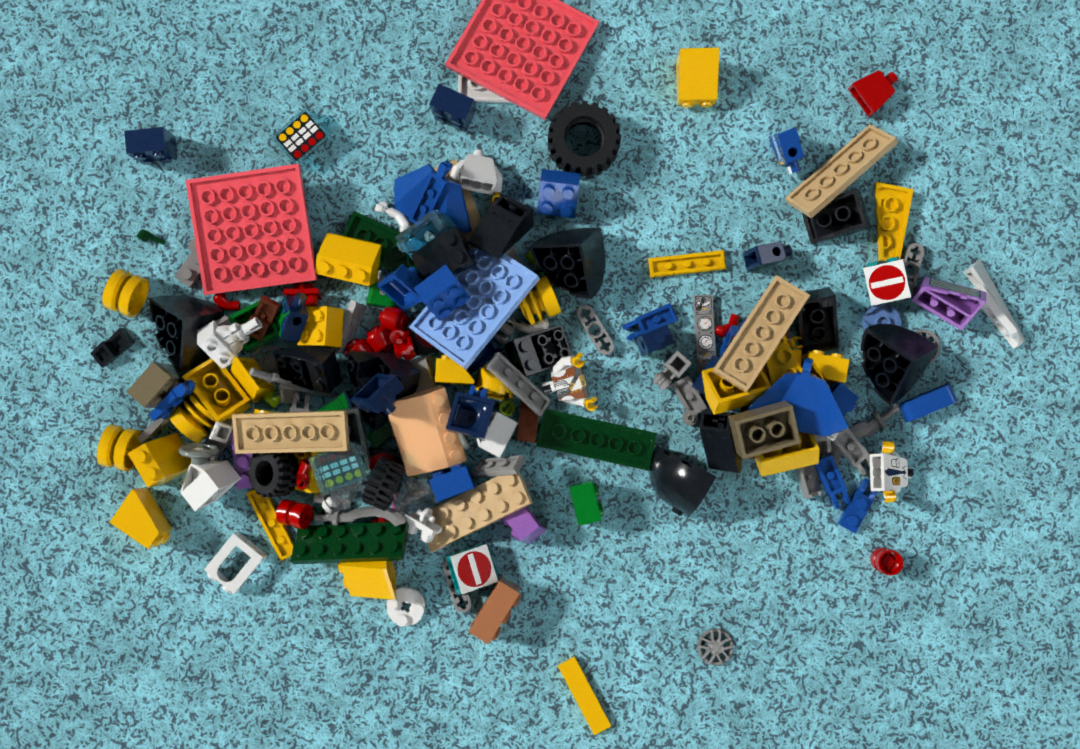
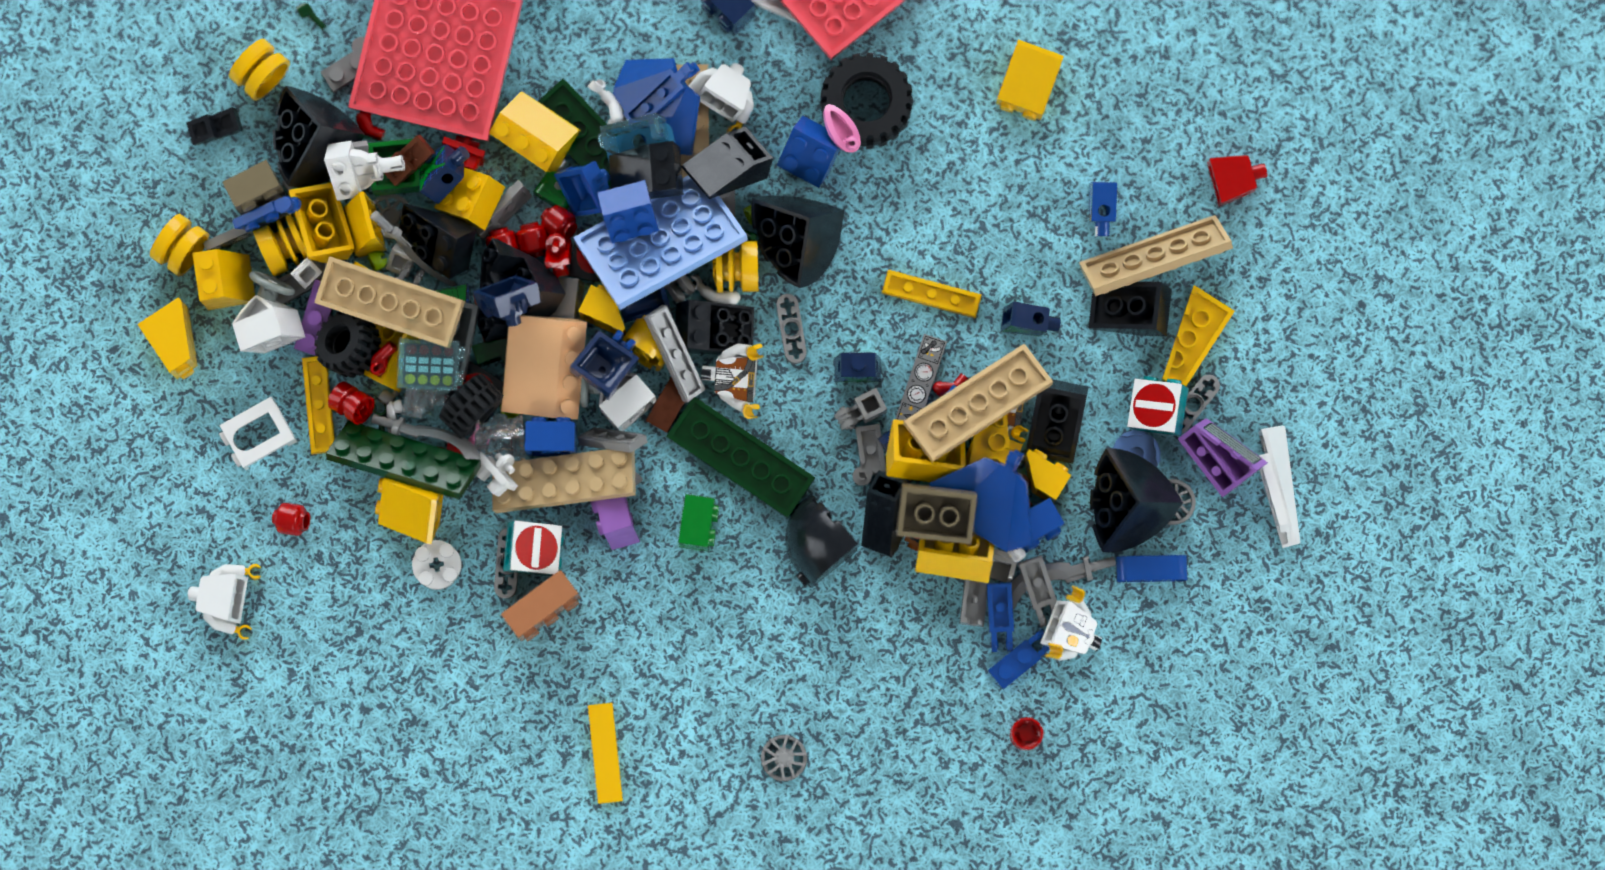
camera: 15 degrees right, 5 degrees down
(258, 696) = (222, 597): none -> white torso
(285, 616) = (291, 519): none -> red head
(508, 410) = (653, 382): lime hinge -> none
(576, 167) = (841, 129): none -> bright pink arm
(652, 320) = (860, 342): blue hinge -> none

